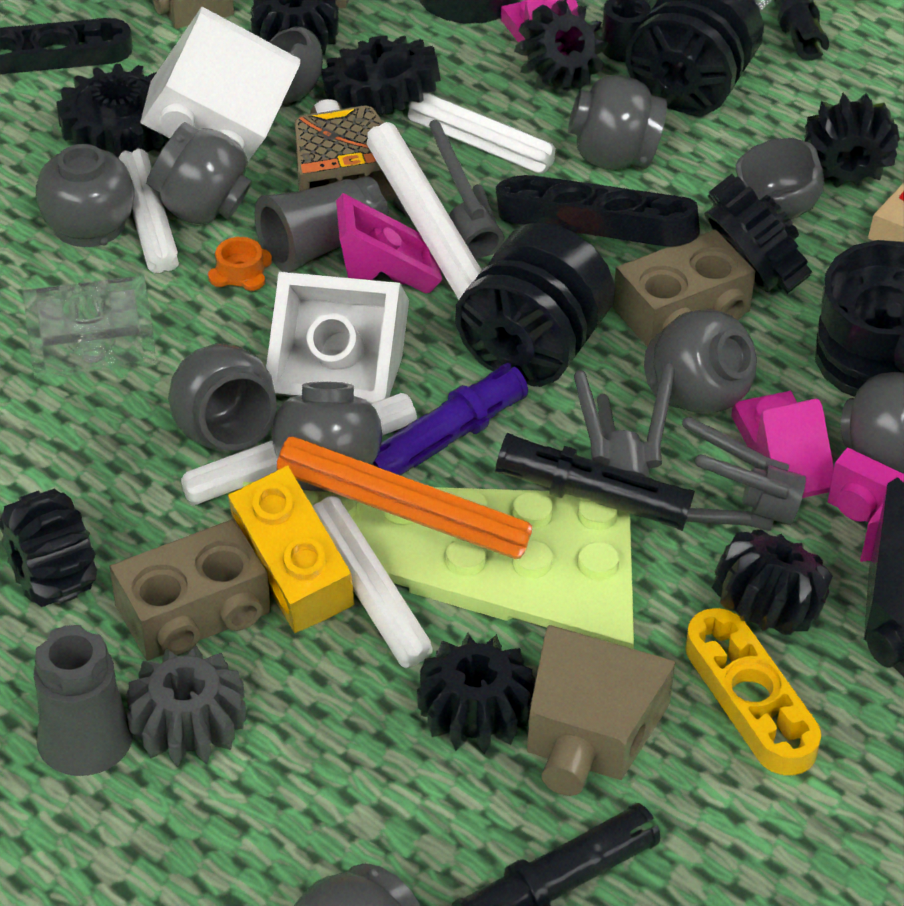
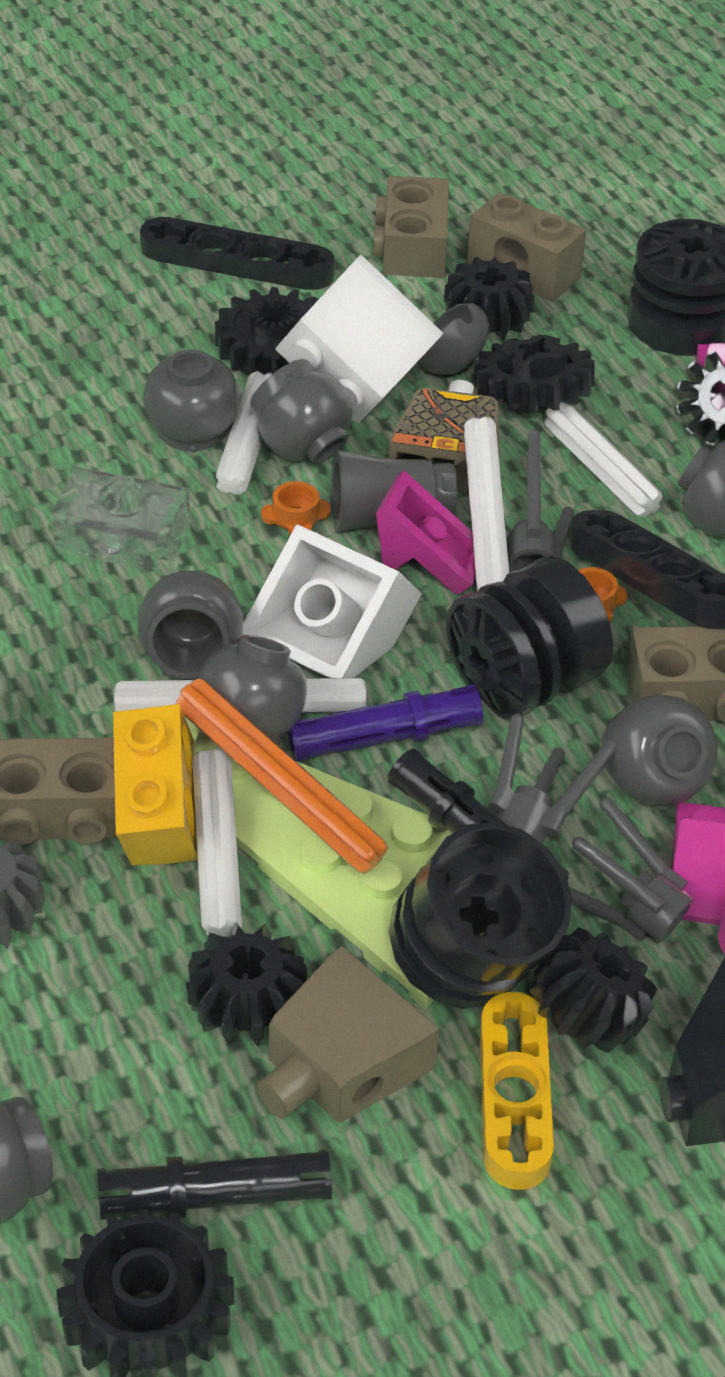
camera: 25 degrees right, 0 degrees up
(657, 552) = (480, 915): none -> black wheel

